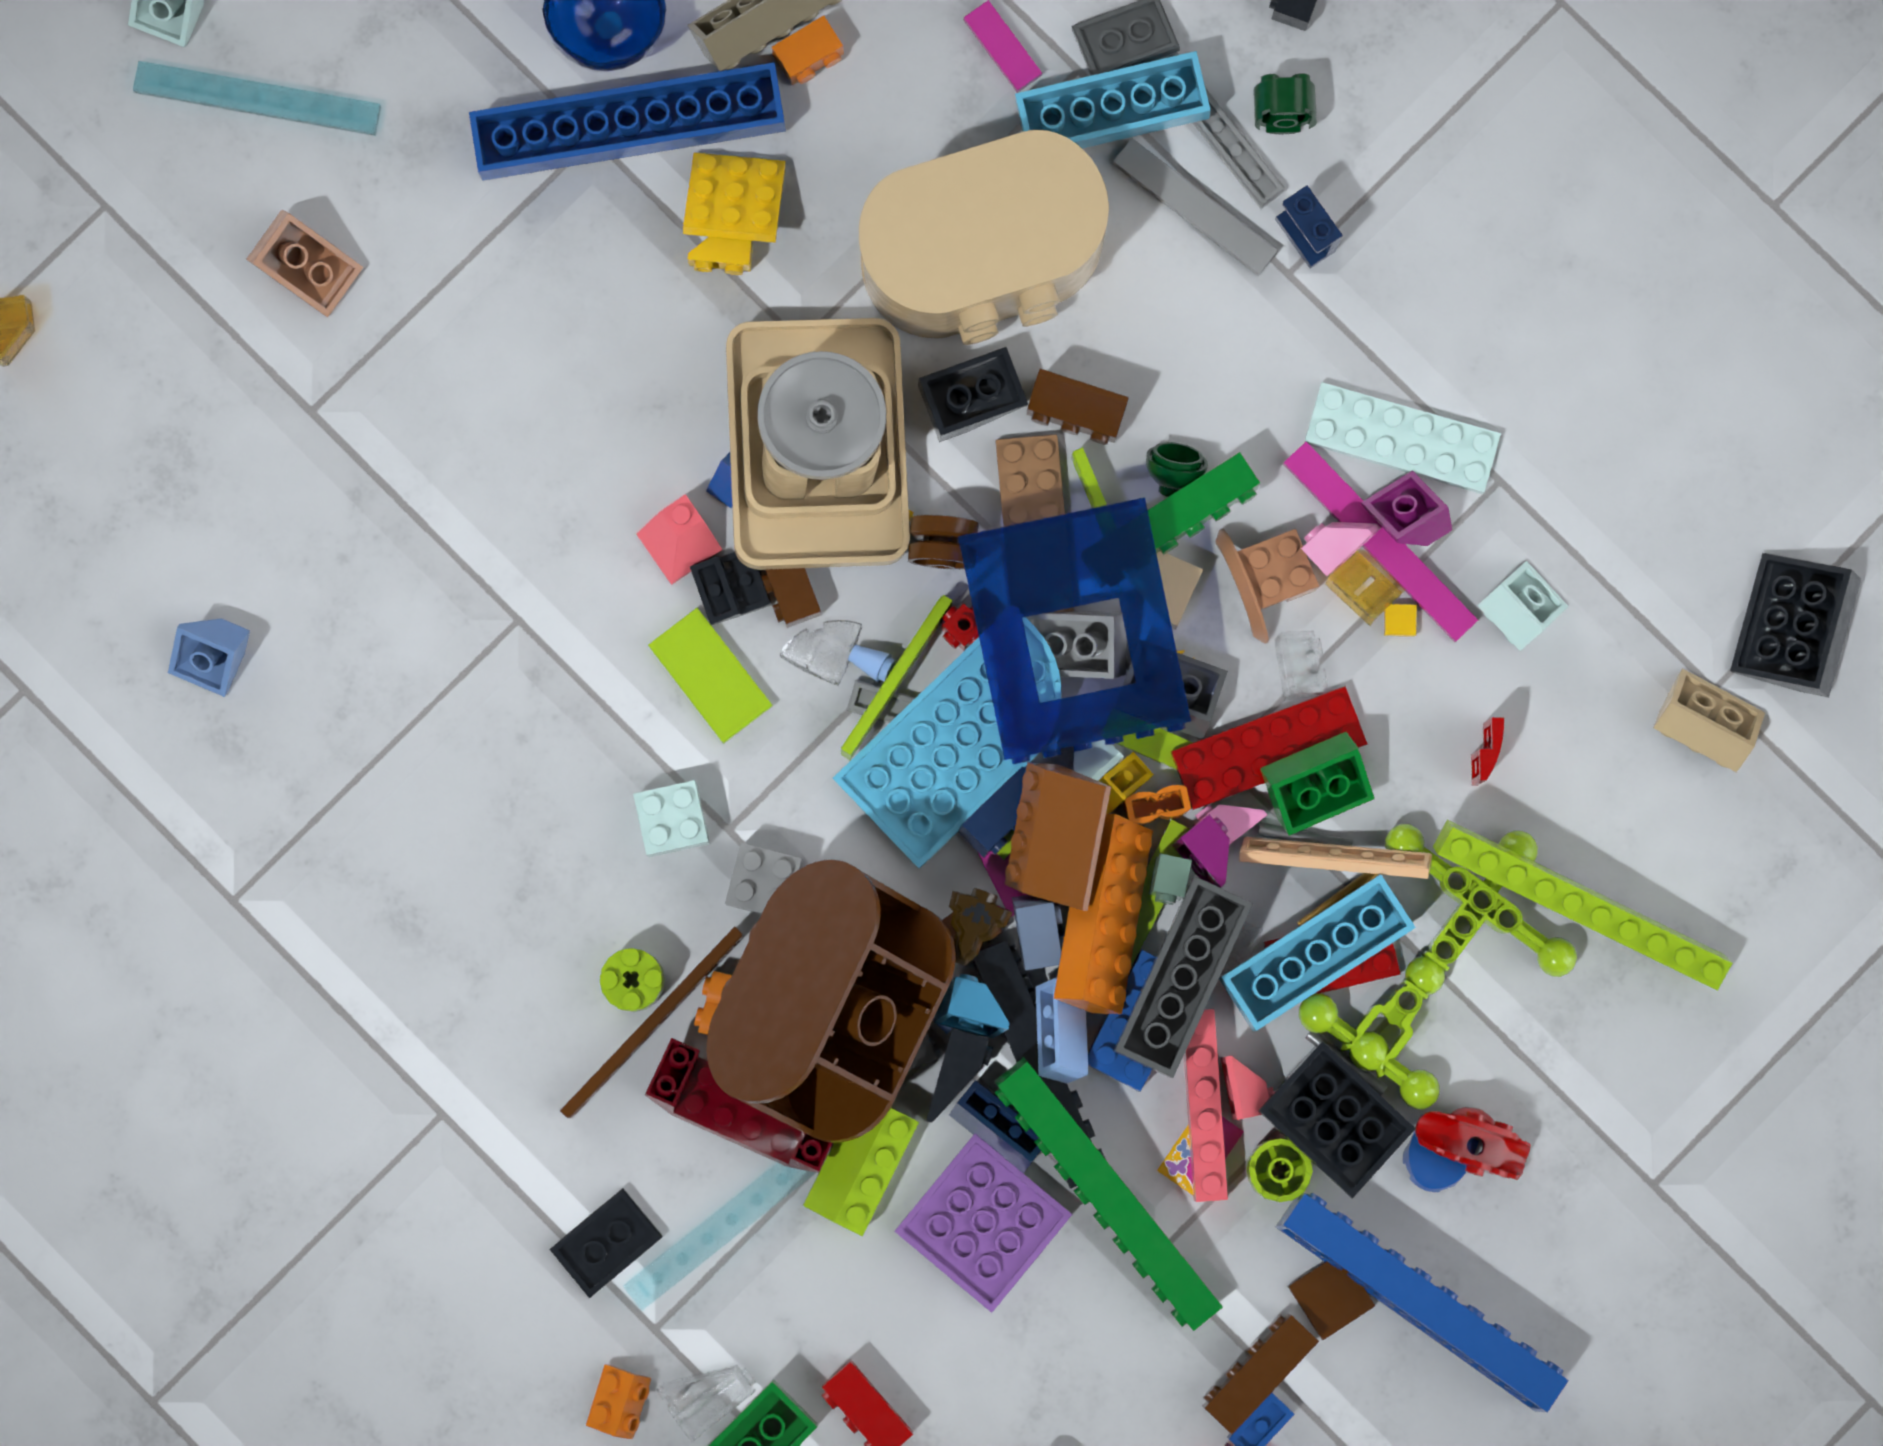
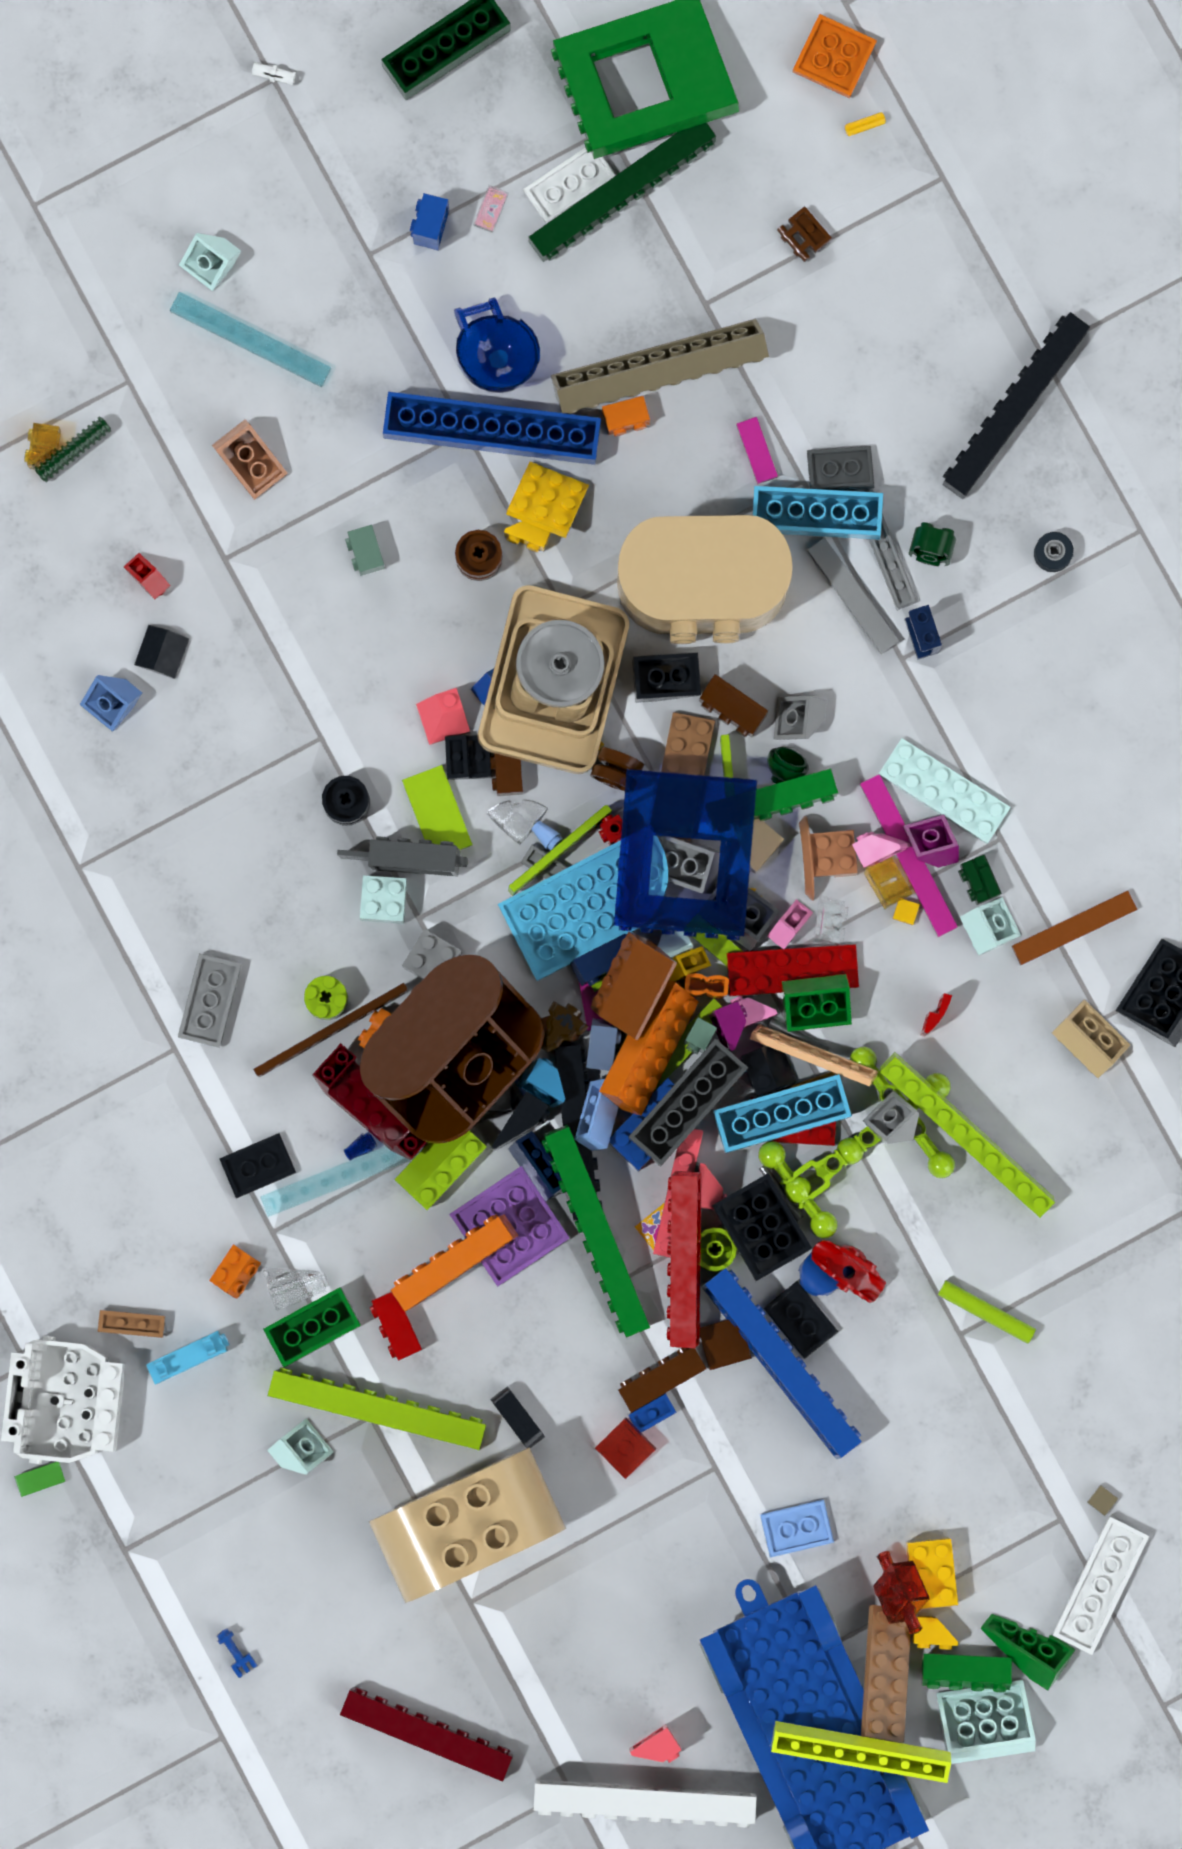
camera: 15 degrees right, 0 degrees up
(54, 321) = (72, 449): none -> dark green piece
(209, 466) = (147, 576): none -> red slope
(260, 565) = (161, 651): none -> black slope
(470, 1032) = (209, 1000): none -> light grey plate
(503, 342) = (365, 549): none -> sand green brick
(567, 681) = (341, 788): none -> black wheel
(658, 284) = (478, 542): none -> reddish brown wheel
(692, 748) = (410, 857): none -> dark grey piece
(744, 1171) = (360, 1146): none -> clear blue cone
(918, 1304) = (453, 1263): none -> orange brick
(1171, 395) = (798, 717): none -> light grey slope
(1244, 1198) = (685, 1259): none -> red brick
(1246, 685) = (790, 924): none -> bright pink slope
(1277, 897) = (767, 1070): none -> black slope
(1427, 1231) = (800, 1319): none -> black tile
(1447, 76) = (1050, 559): none -> black wheel
(1474, 915) = (893, 1120): none -> light grey slope
(1489, 546) = (979, 880): none -> dark green brick
(1638, 574) = (1074, 927): none -> dark orange tile
(1681, 1143) = (986, 1312): none -> lime piece

